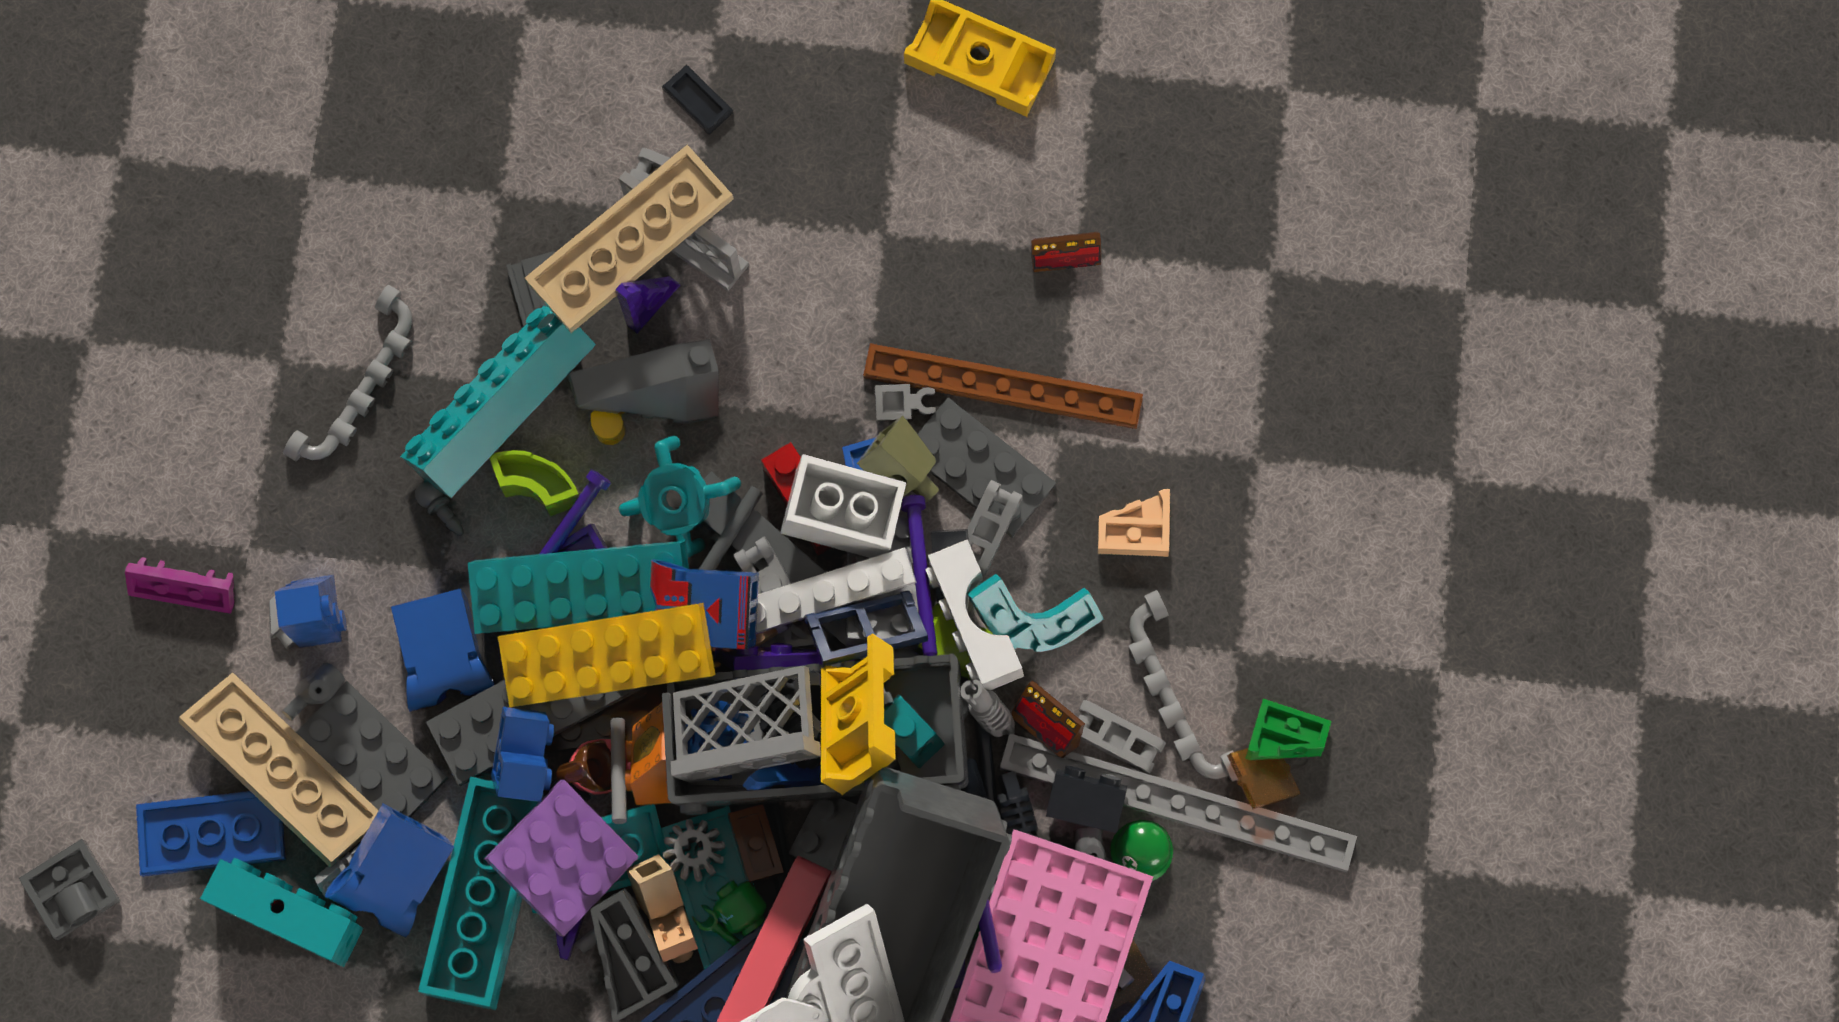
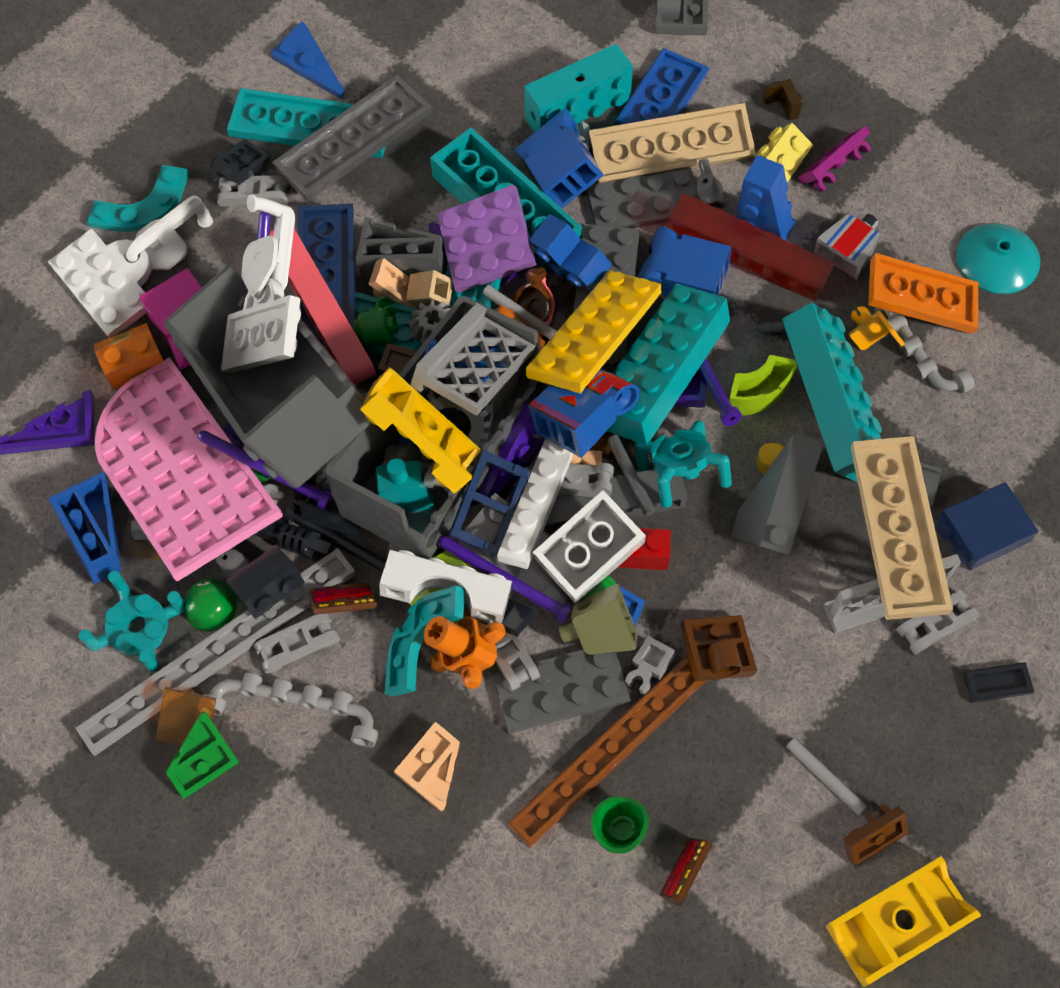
camera: 125 degrees right, 10 degrees down
(128, 683) = (787, 96): none -> dark brown bracket
(209, 647) = (786, 147): none -> light yellow bracket
(213, 368) = (997, 269): none -> teal dish
(290, 501) = (849, 243): none -> torso
(311, 390) = (923, 293): none -> orange plate
(369, 598) = (753, 248): none -> clear red brick
(388, 417) = (871, 328): none -> light orange bracket
(545, 190) = (986, 526): none -> dark blue brick
(643, 299) = (849, 527): dark purple wing -> none
(843, 350) = (718, 648): none -> reddish brown plate
(893, 192) = (826, 776): none -> light grey bar
(932, 124) = (876, 834): none -> reddish brown plate
(988, 709) = (374, 557): light grey hinge -> none
(1015, 562) = (463, 646): none -> orange piece
(1070, 325) = (619, 824): none -> green helmet
(1225, 885) = (125, 611): none -> teal plate

